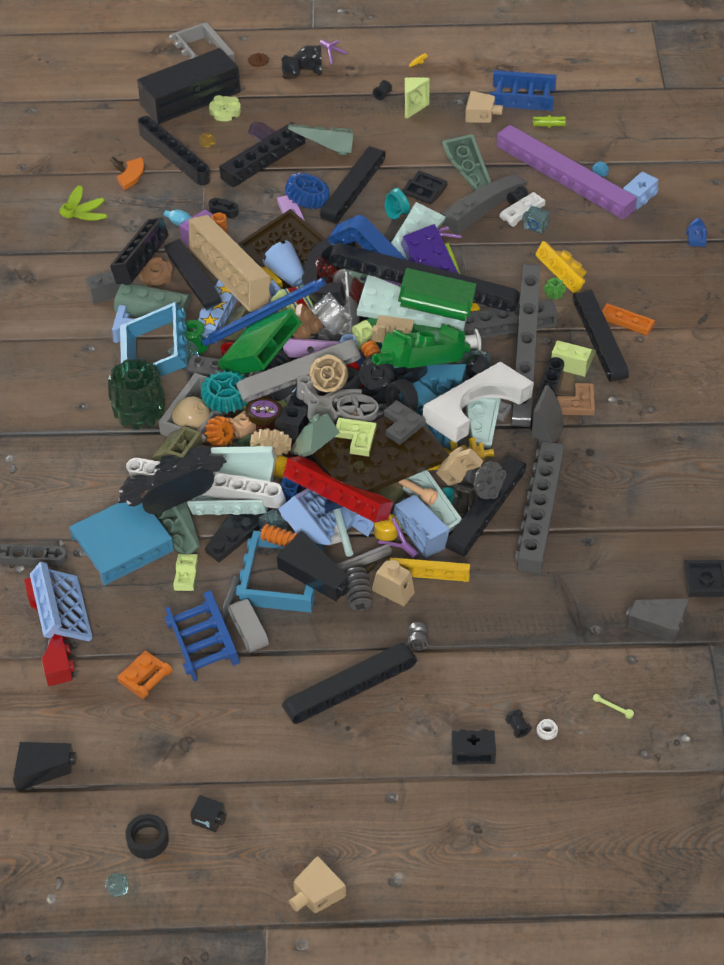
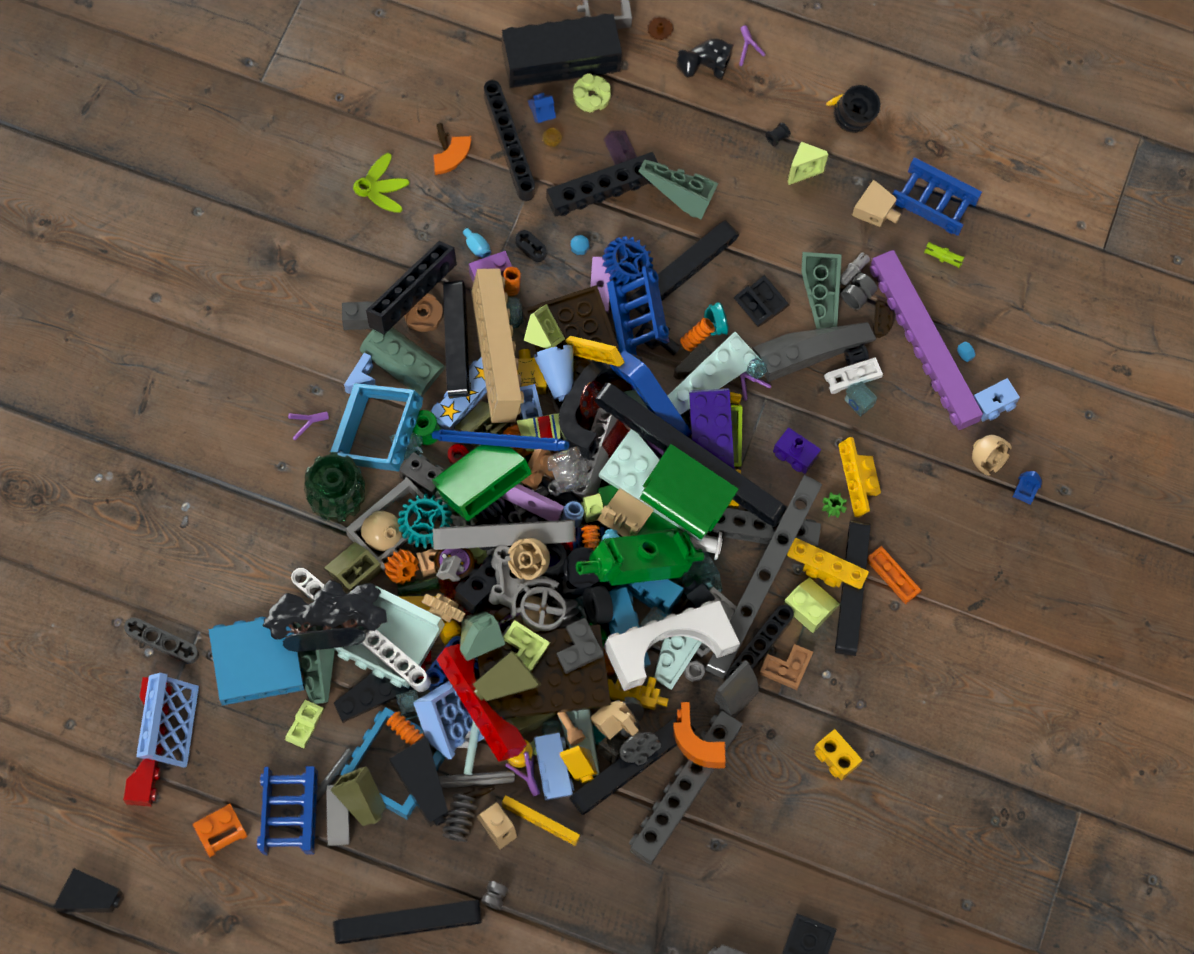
camera: 15 degrees right, 20 degrees up
(93, 365) = (311, 419): none -> medium lavender plant
(190, 122) = (542, 107): none -> blue brick
(258, 240) = (543, 329): none -> yellowish green slope
(262, 196) = (579, 245): none -> dark azure tile
(263, 596) = (360, 796): none -> olive slope
(264, 410) = (449, 568): none -> light grey tile
(315, 234) = (595, 351): none -> yellow tile
(318, 220) = (621, 310): none -> blue fence
(353, 456) = (505, 679): none -> olive slope
(386, 216) = (697, 334): none -> orange piece
(435, 55) = (864, 104): none -> black wheel
(443, 505) = (579, 763): none -> yellow slope
(445, 219) = (756, 368): none -> clear light blue tile
(486, 147) = (854, 268): none -> light grey axle
(497, 157) = (859, 291): none -> dark grey wheel
(503, 428) = (694, 671): none -> light grey tile
(505, 263) = (796, 451): none -> dark purple brick
(524, 171) = (882, 320): none -> dark brown tile
(532, 468) = (698, 751): none -> orange arch
(572, 325) = (826, 566): none -> yellow bracket
(653, 443) = (842, 752): none -> yellow brick
(656, 219) = (990, 453): none -> tan cylinder

